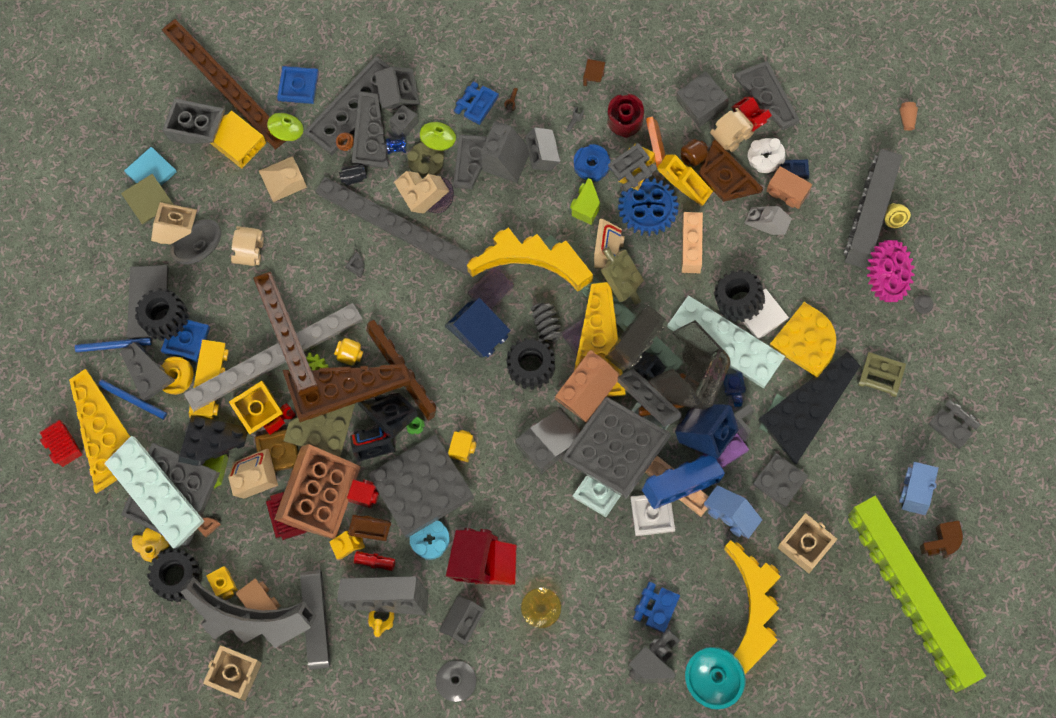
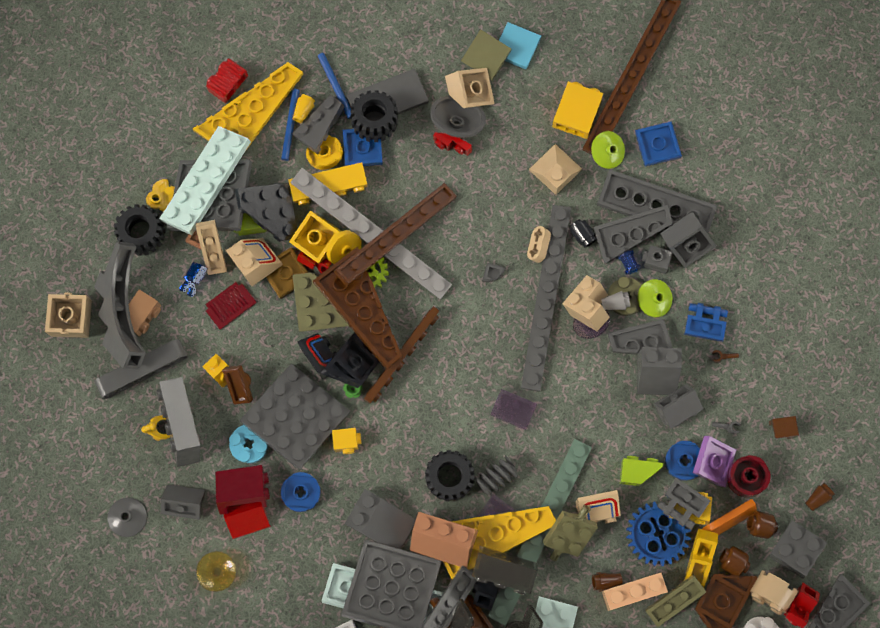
camera: 70 degrees right, 5 degrees up
(122, 380) = (303, 108): none -> yellow cone
(192, 122) = (576, 63): dark grey slope -> none
(213, 262) = (446, 141): none -> red slope
(222, 583) = (146, 274): yellow brick -> none
(224, 507) = (211, 247): none -> tan plate
(244, 539) = (193, 276): none -> clear blue plate
(247, 246) = (470, 164): tan brick -> none
(275, 382) = (342, 244): none -> yellow plate
(317, 492) = (257, 325): nougat slope -> none
(340, 141) = (612, 207): dark orange plate -> none
(347, 214) = (538, 244): none -> tan beam
(348, 351) = (401, 299): yellow head -> none
(363, 493) = (270, 366): red brick -> none
(374, 561) = (211, 401): red pin -> none
(428, 163) = (617, 301): none -> light grey cone
(478, 327) = (467, 412): dark blue slope -> none
(500, 514) = (294, 483): none -> blue plate
(533, 251) = (557, 411): yellow arch -> none
(601, 137) = (714, 461): none -> medium lavender plate
(663, 67) = (819, 497): none -> reddish brown cone
(670, 120) = (762, 524): none -> reddish brown head
(673, 266) = (604, 581): none -> reddish brown cone
(711, 211) = (675, 600): none -> olive plate

